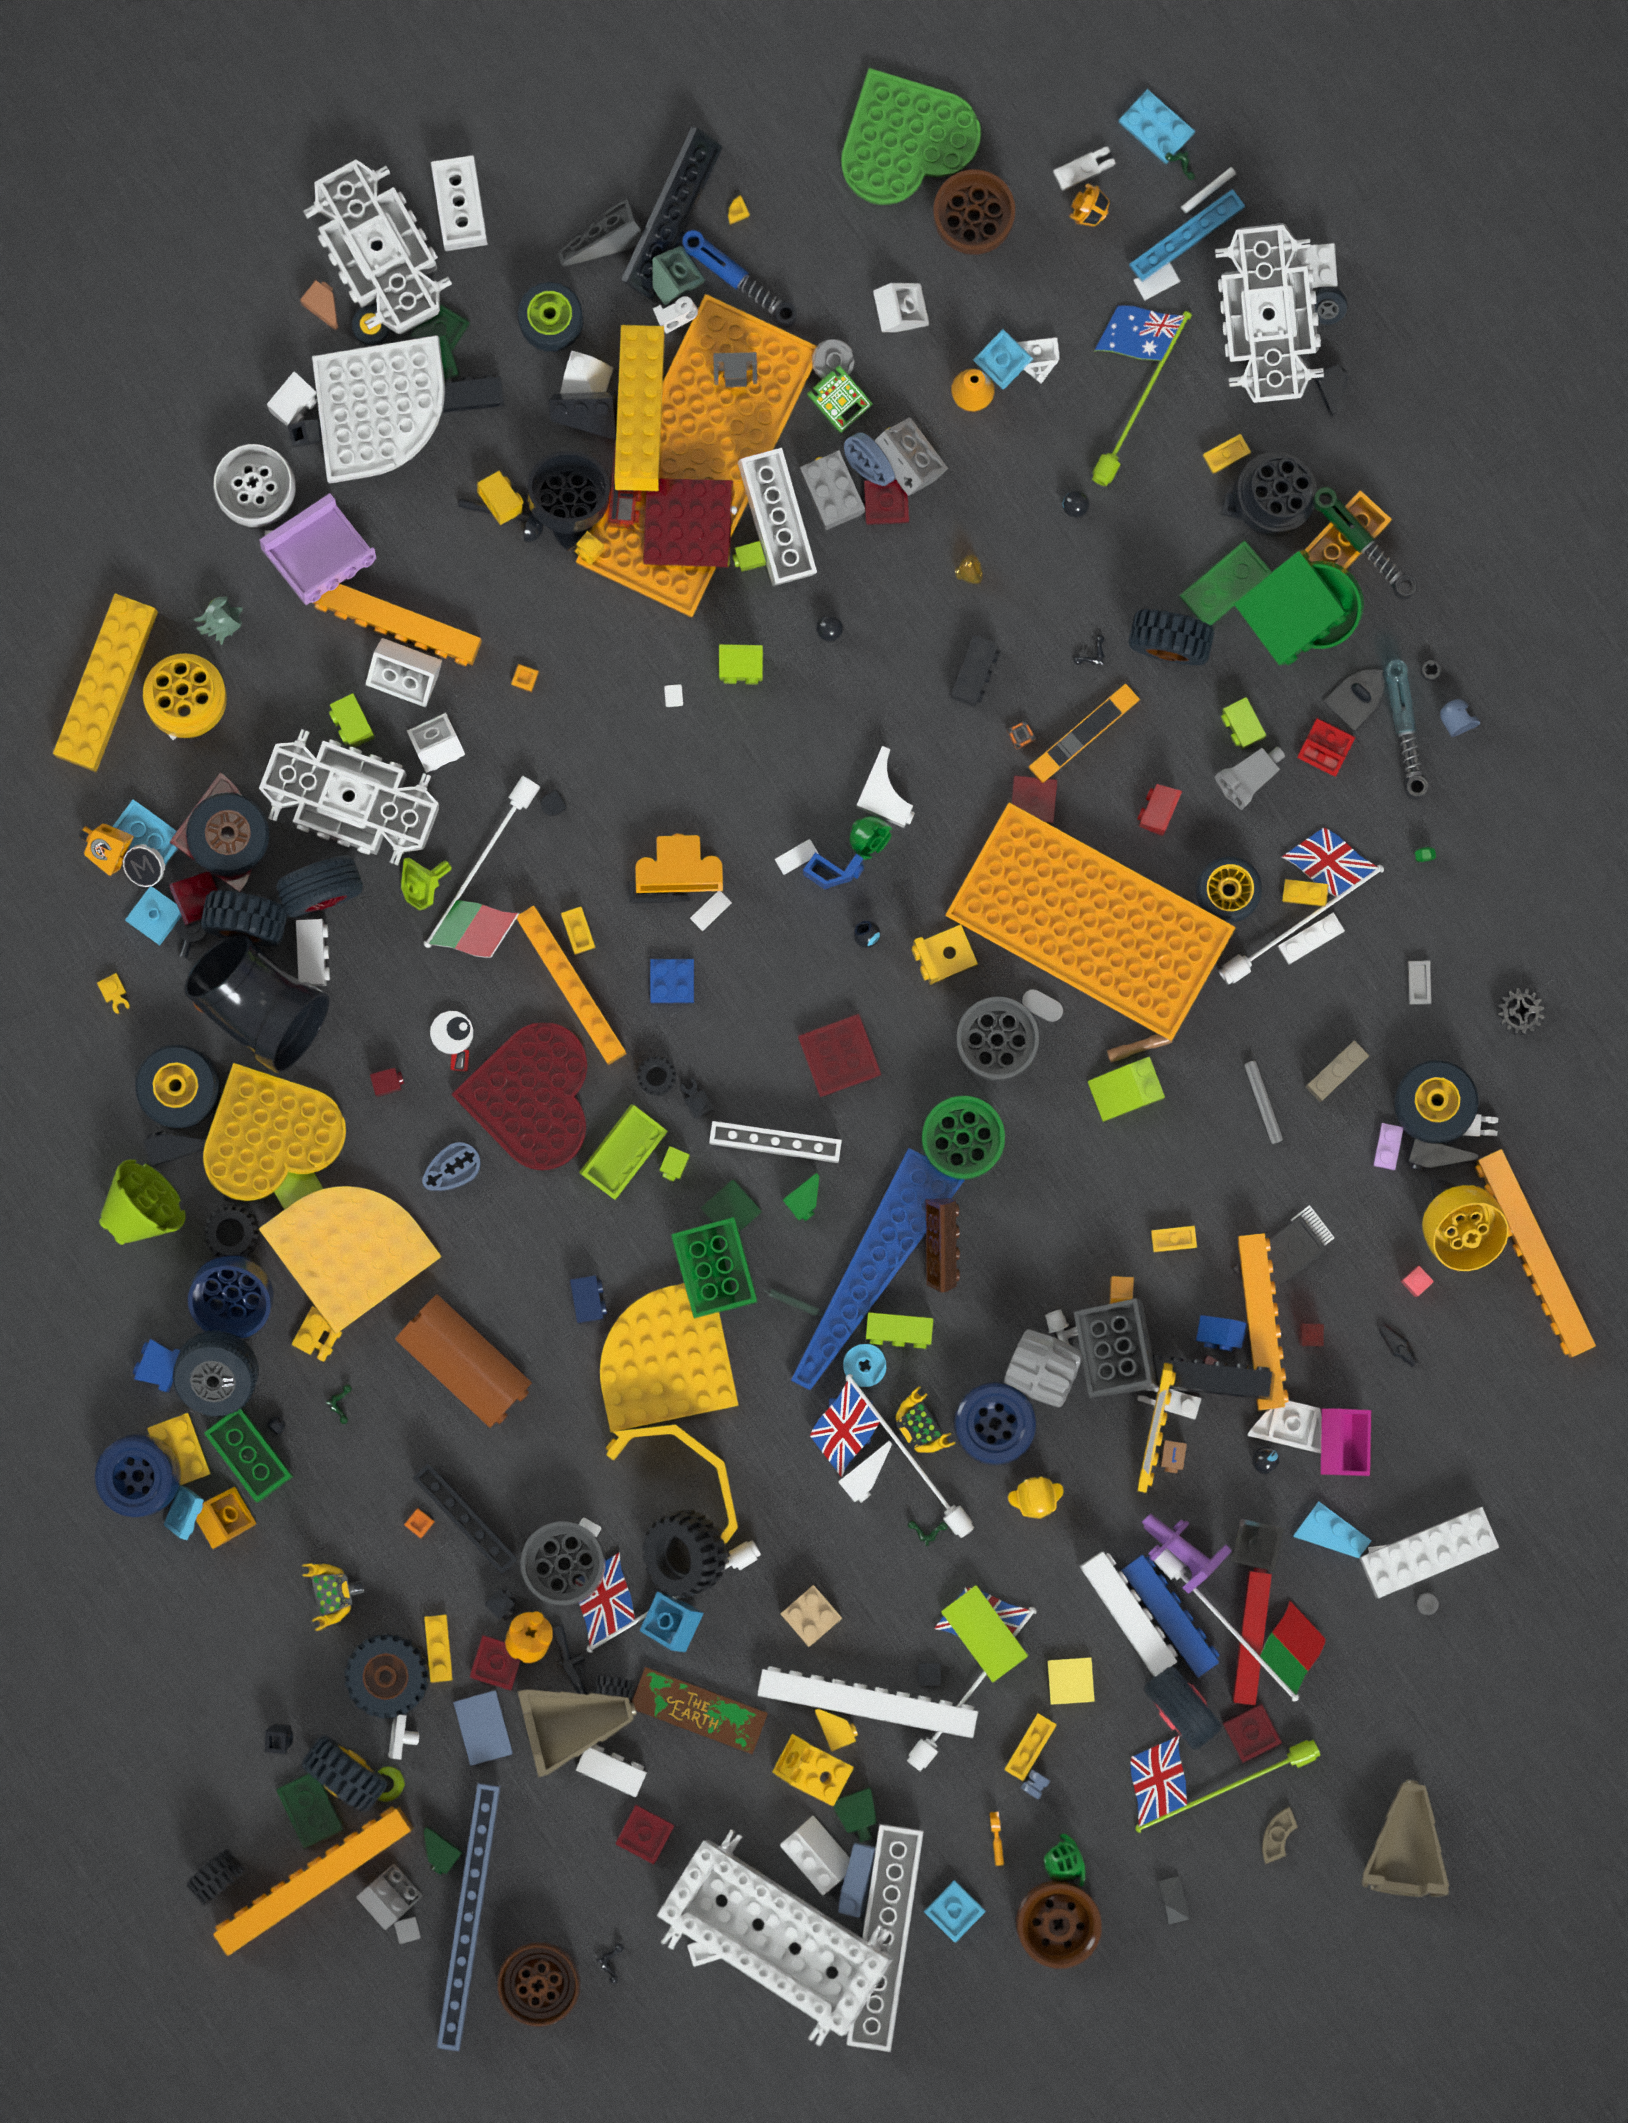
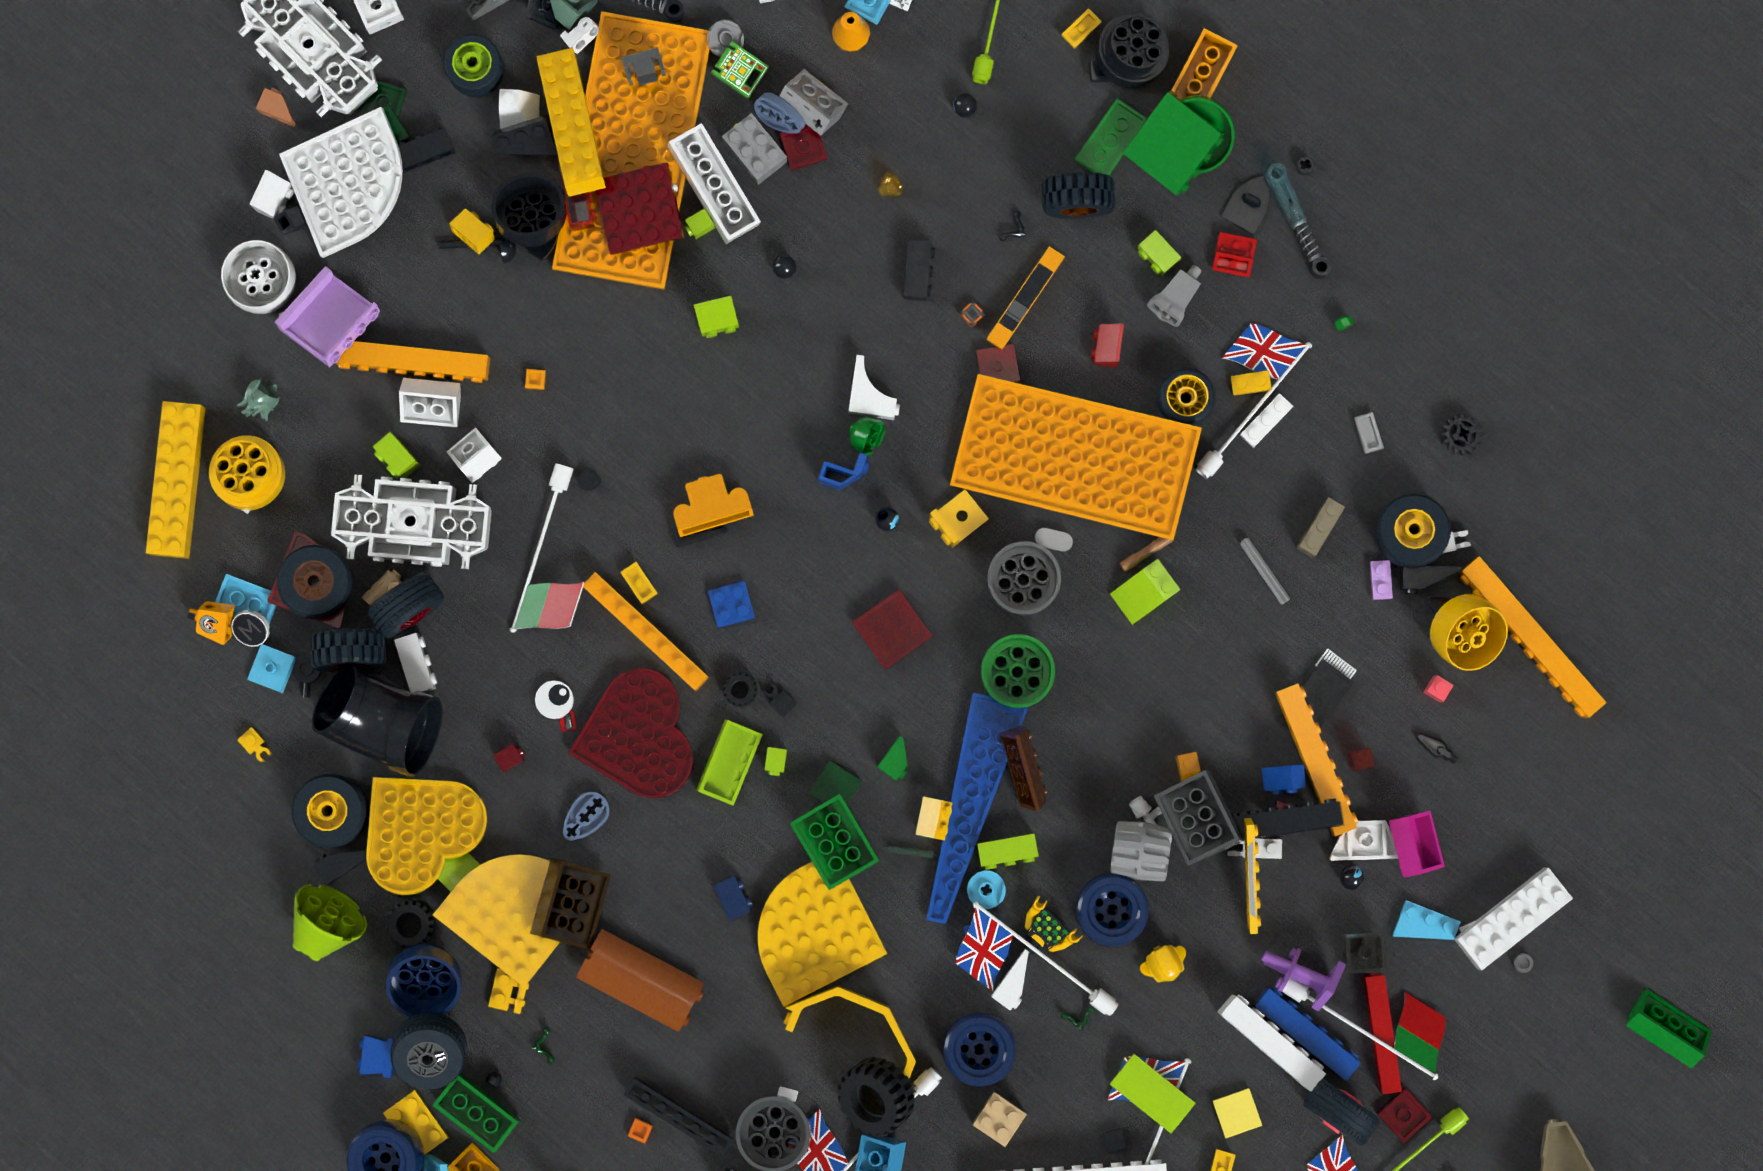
camera: 15 degrees left, 0 degrees up
(191, 895) = (297, 642): dark red plate -> none
(298, 859) = (382, 586): none -> tan piece
(363, 333) = (328, 120): black wheel -> none
(410, 1257) = (570, 903): none -> dark brown slope
(420, 883) = (492, 578): lime piece -> none
(589, 548) = (560, 253): yellow brick -> none
(673, 695) = (666, 360): white sticker -> none
(711, 910) = (748, 535): white sticker -> none
(775, 1142) = (857, 718): white brick -> none
(791, 1514) = (1000, 1062): none -> dark blue wheel
(796, 856) = (808, 469): white sticker -> none
(829, 1272) = (934, 818): none -> yellow brick
(1173, 1239) = (1220, 709): yellow plate -> none
(1173, 1456) = (1271, 895): medium nougat brick -> none
(1362, 541) = (1218, 70): piece -> none
(1456, 718) = (1338, 199): sand blue helmet -> none
(1566, 1717) = (1669, 1028): none -> green slope

